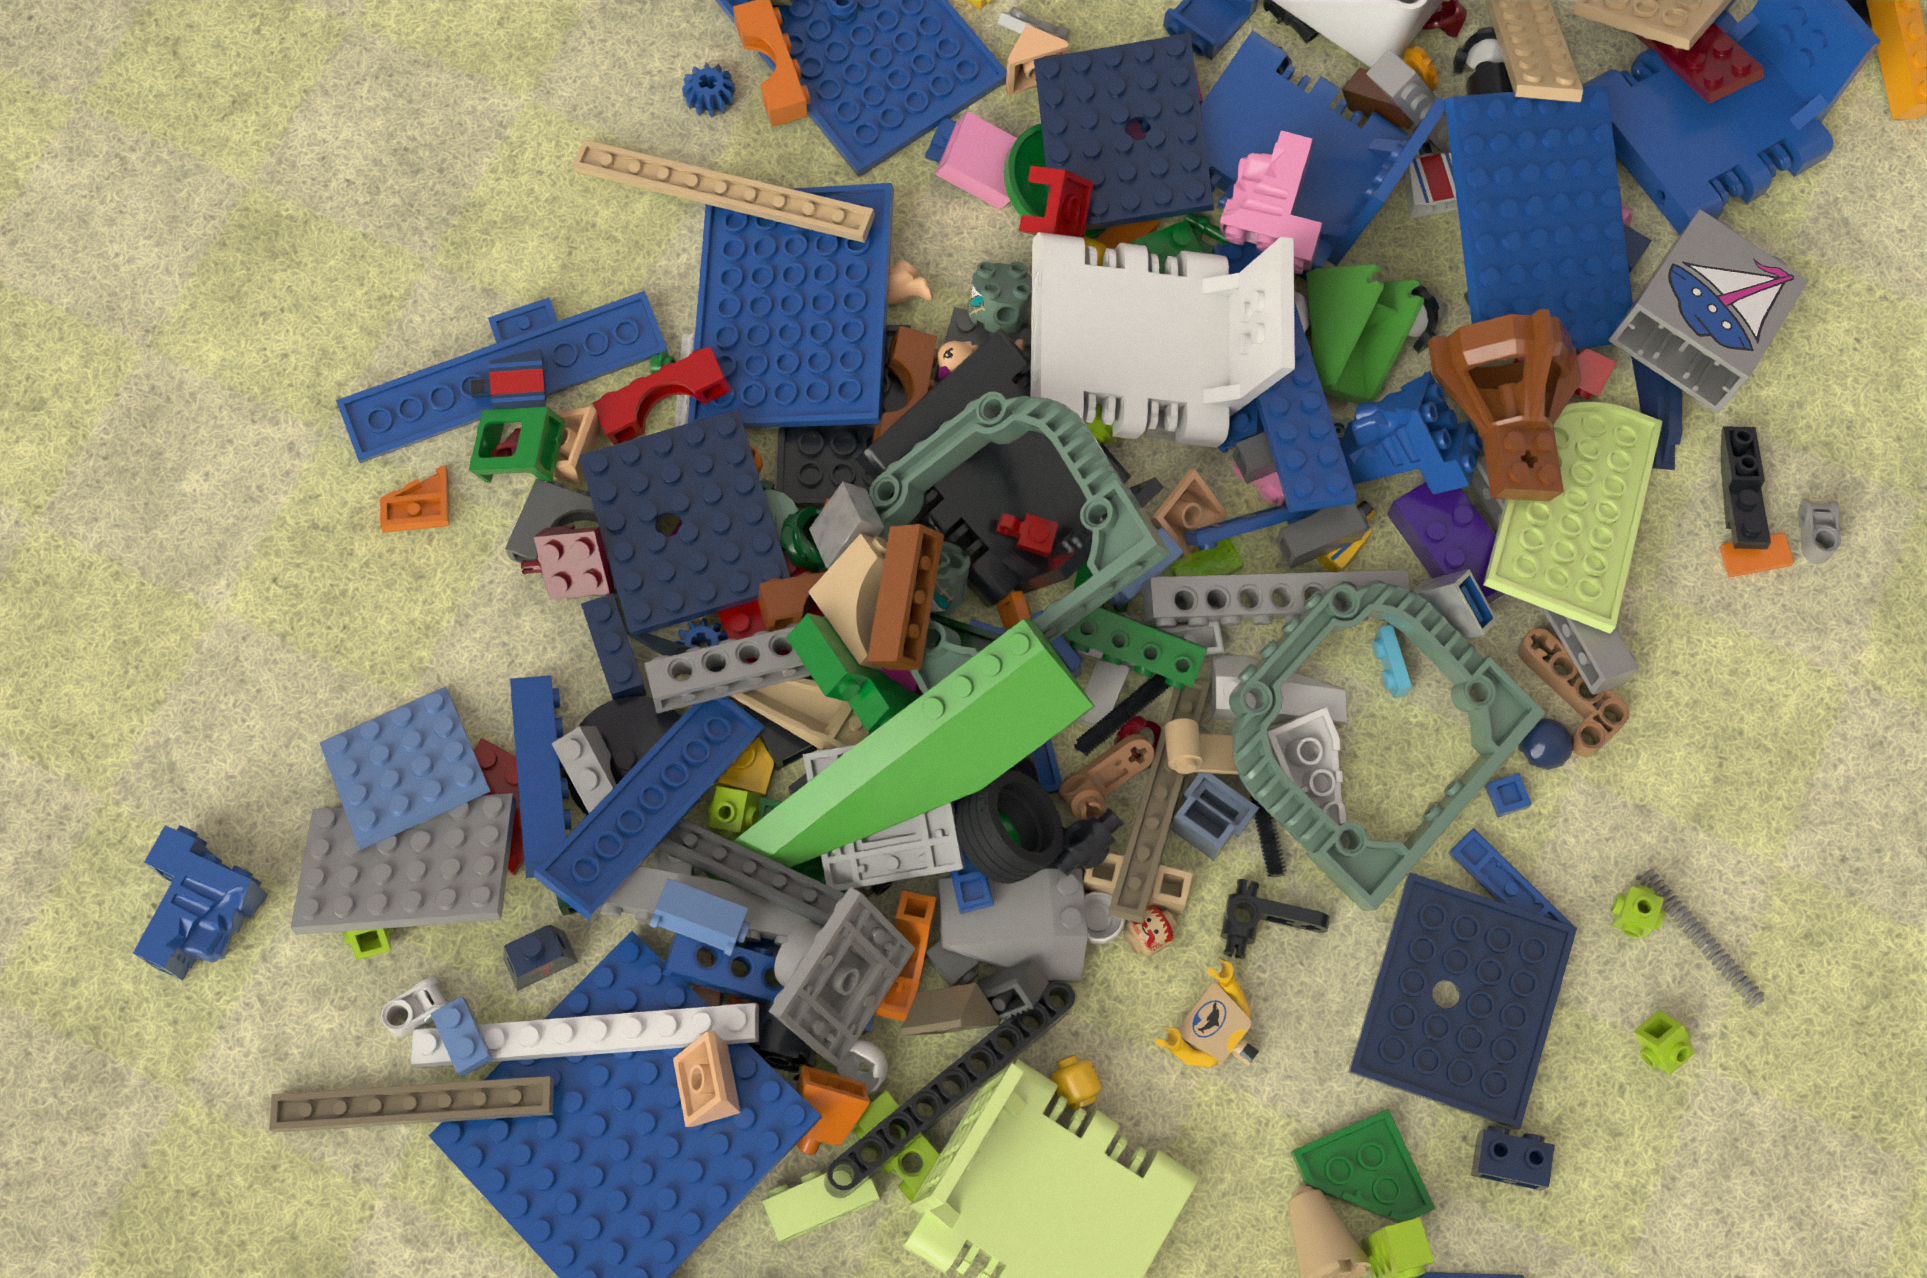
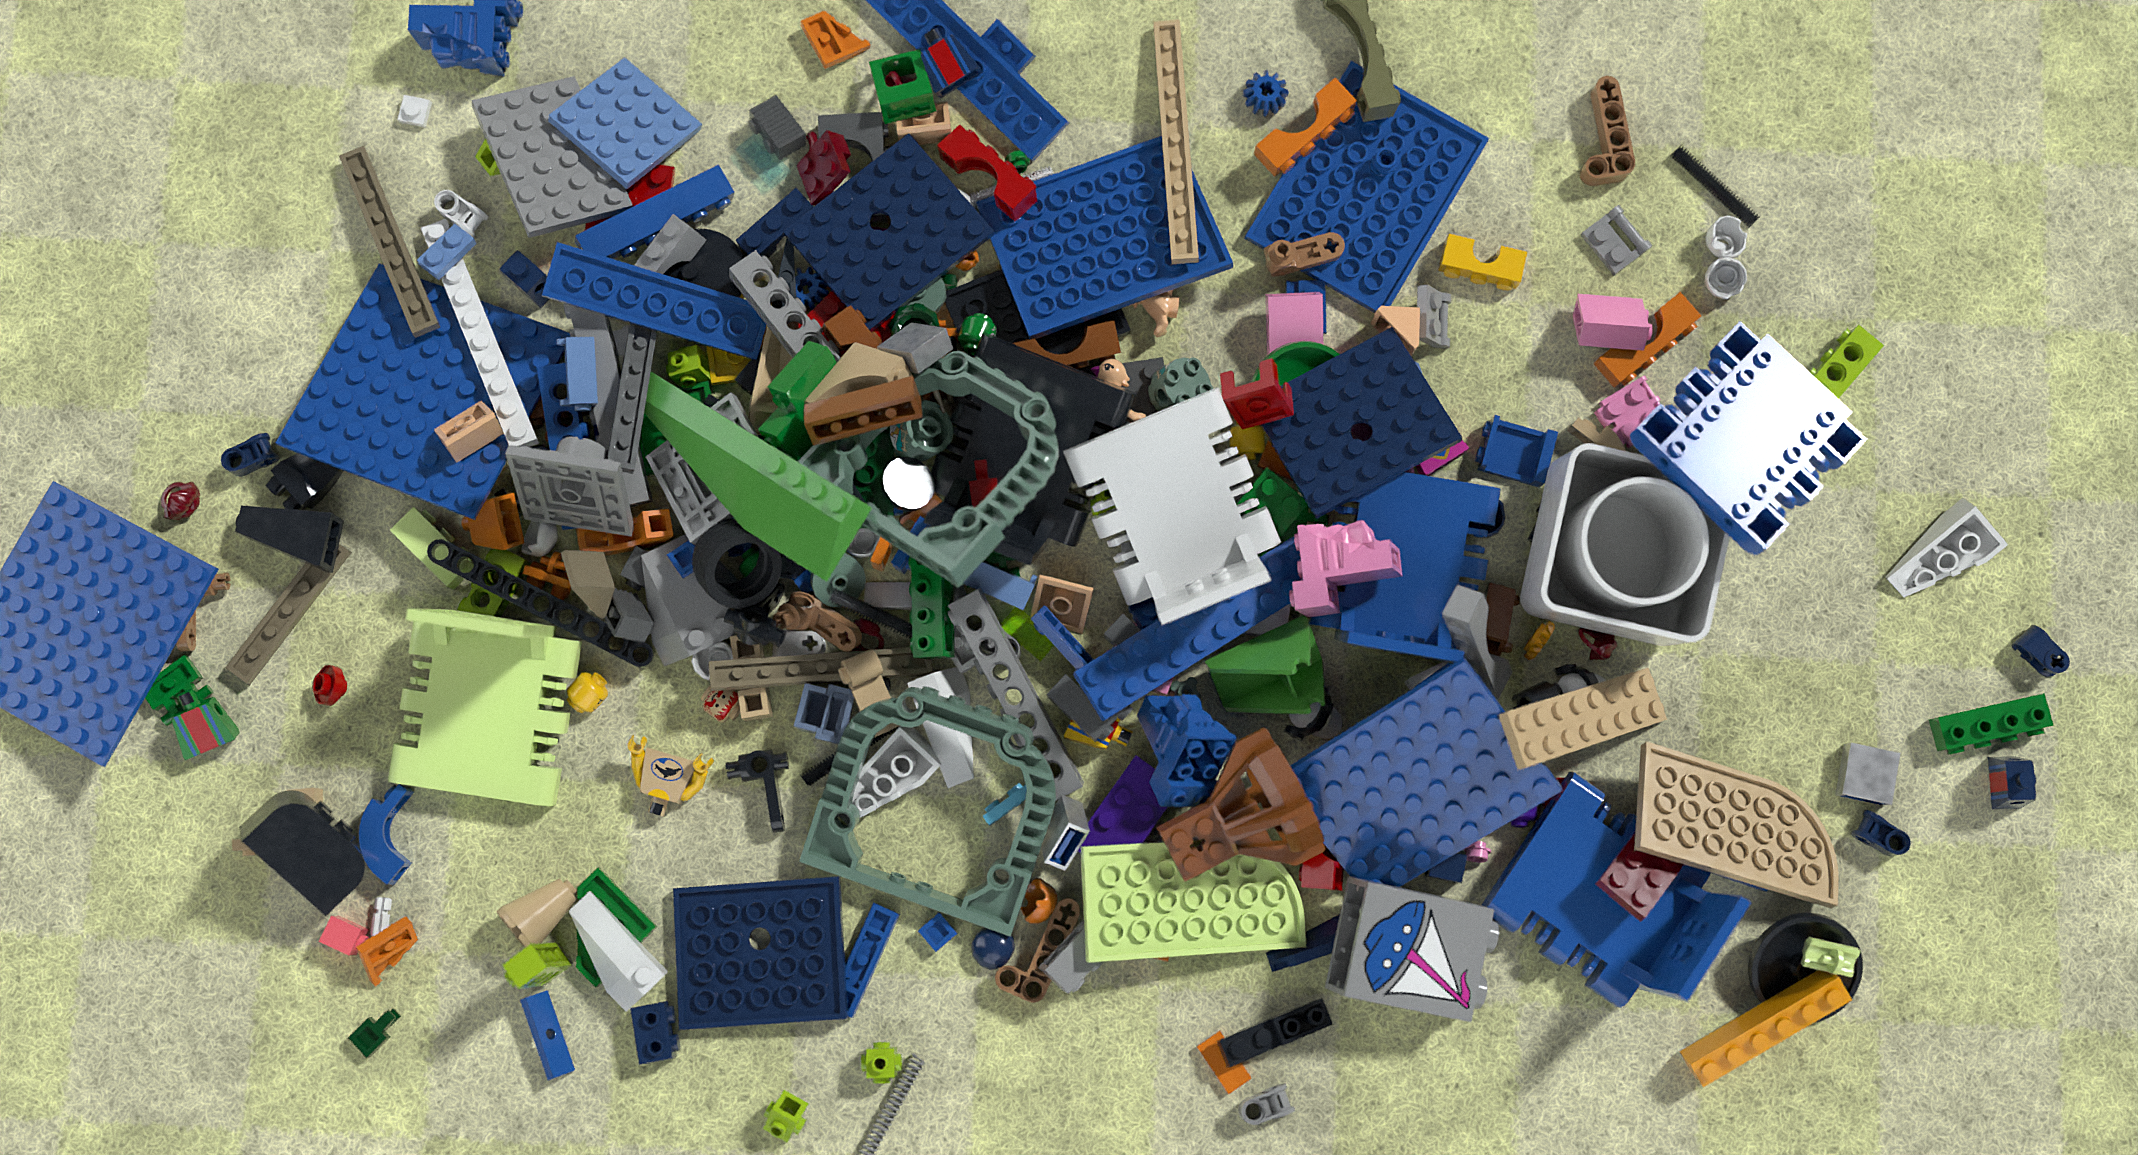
camera: 70 degrees right, 10 degrees up
(257, 1017) = (414, 111): none -> white plate
(494, 601) = (777, 127): none -> dark grey brick
(523, 636) = (765, 165): none -> clear light blue plate
(845, 469) = (972, 329): none -> green head
(907, 122) = (1289, 257): none -> medium nougat piece
(927, 1060) = (540, 573): none -> orange hips
(988, 612) = (907, 484): none -> tile
(1060, 754) = (852, 584): none -> sand green plate
(1126, 815) = (796, 642): none -> white piece
(1414, 1163) = (618, 956): none -> white wedge
(1520, 666) = (1041, 901): none -> orange hair

